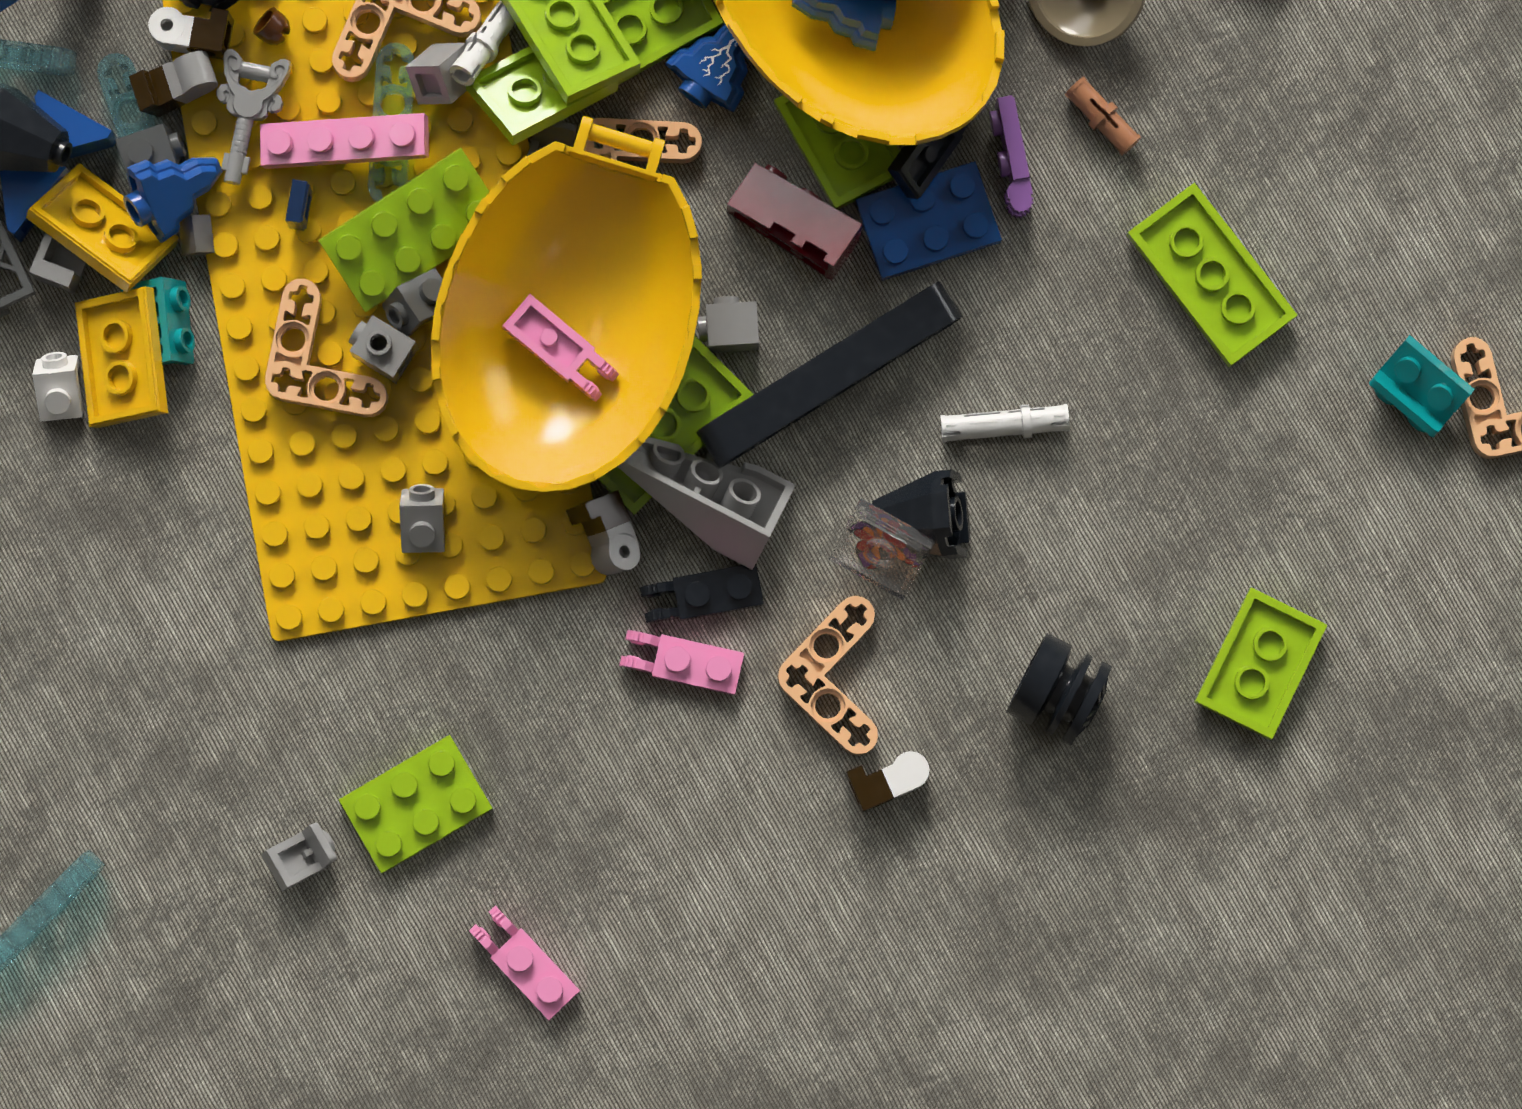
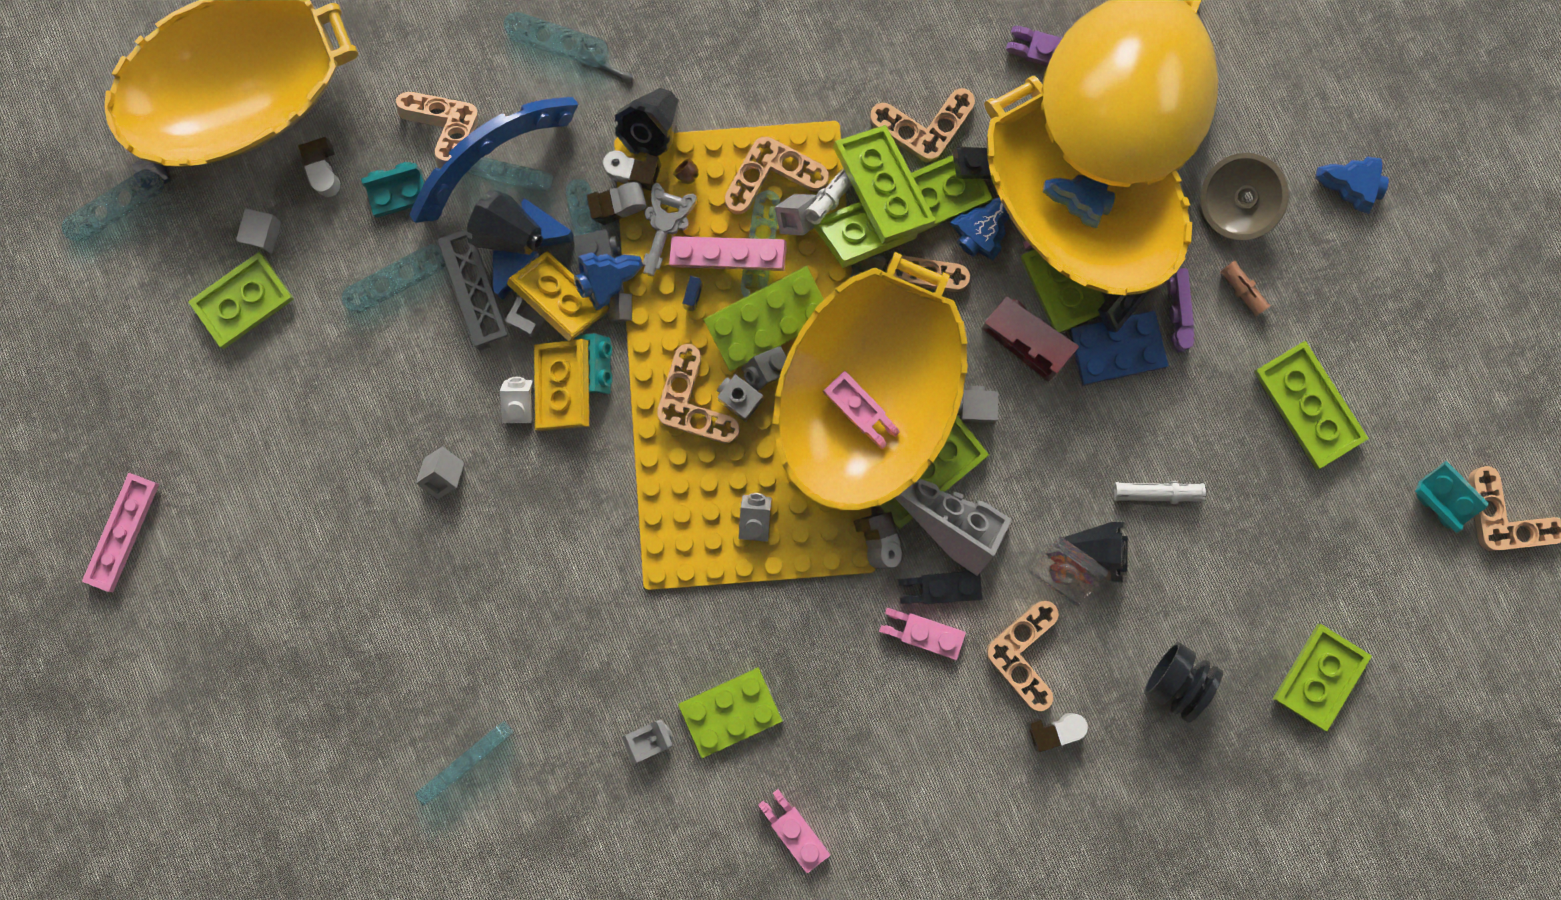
camera: 15 degrees right, 0 degrees up
(829, 374) = (1043, 447): black beam -> none

